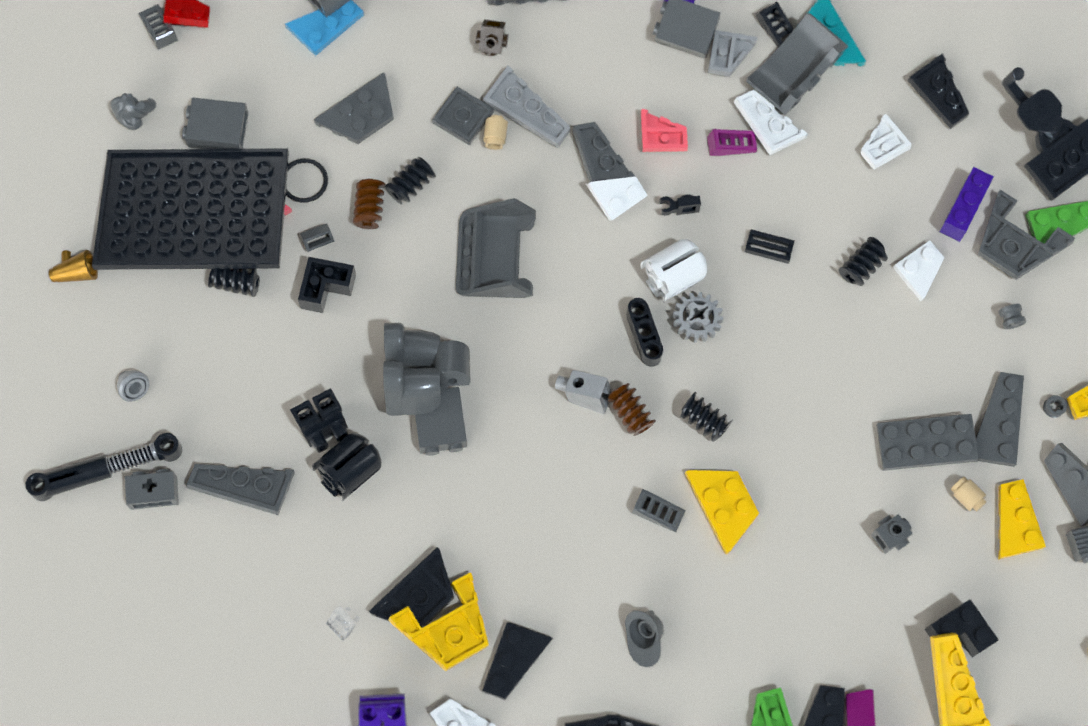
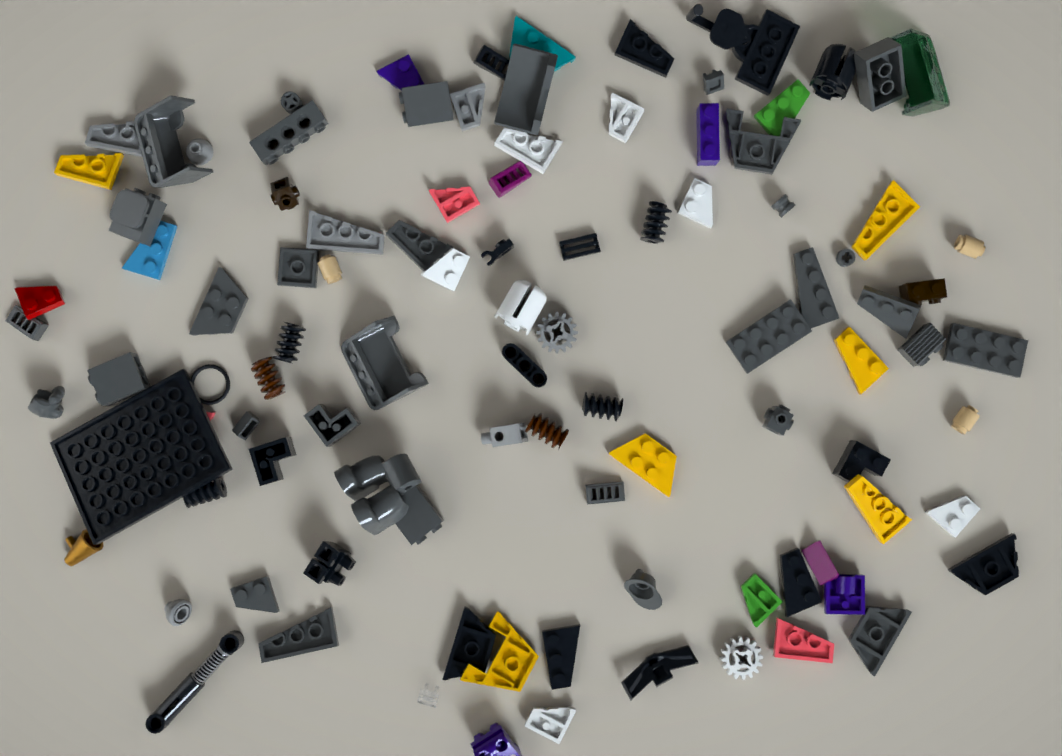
camera: 25 degrees left, 15 degrees up
(162, 495) = (249, 674): dark grey brick -> none
(221, 414) = (256, 596): none -> dark grey wing
(348, 465) = (377, 586): black cylinder -> none
(408, 287) = (331, 428): none -> dark grey brick
(969, 494) = (817, 359): tan brick -> none
(999, 157) = (713, 82): none -> dark grey tile

